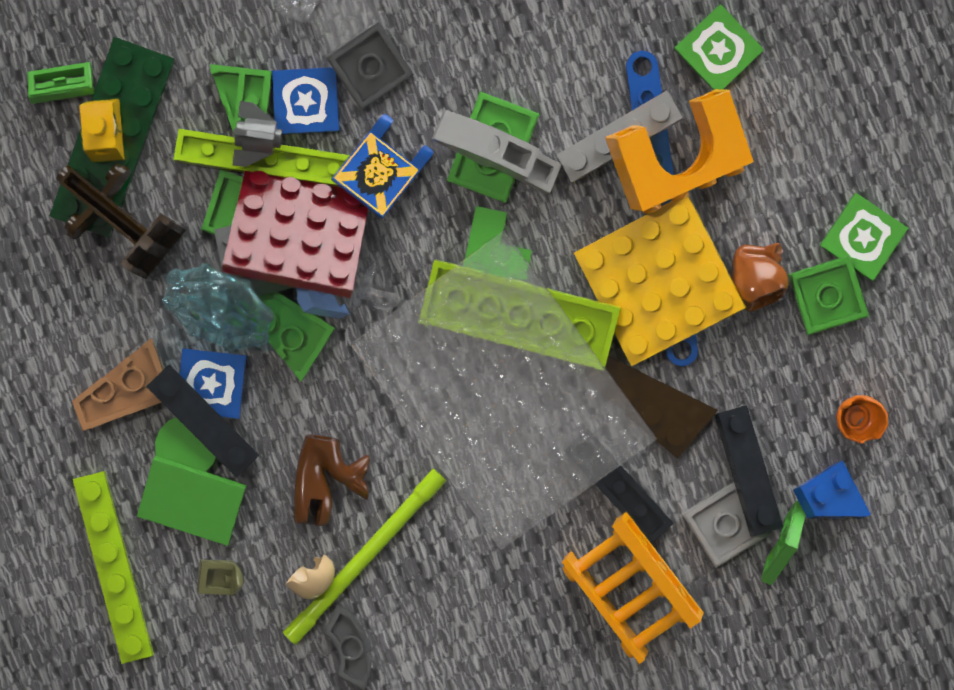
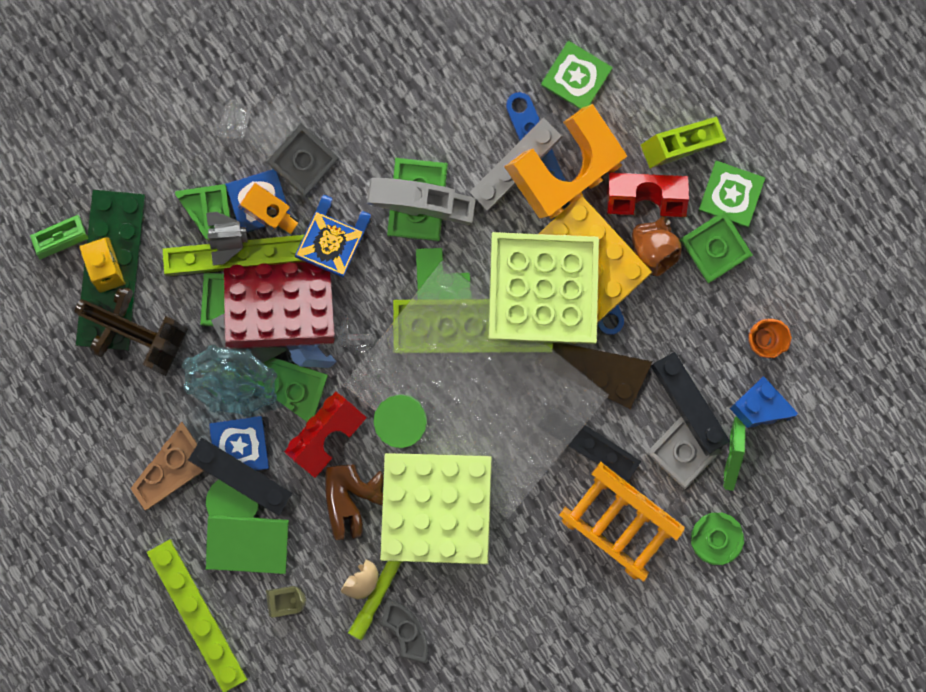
camera: 20 degrees left, 5 degrees down
(302, 105) = (256, 204): none -> light orange torso
(329, 379) = (308, 446): none -> red arch
(405, 404) = (400, 421): none -> bright green tile
(421, 517) = (436, 508): none -> yellowish green plate
(613, 295) = (543, 288): none -> yellowish green plate
(731, 626) = (711, 544): none -> bright green tile
(789, 215) = (667, 191): none -> red arch
(822, 160) = (682, 142): none -> lime slope

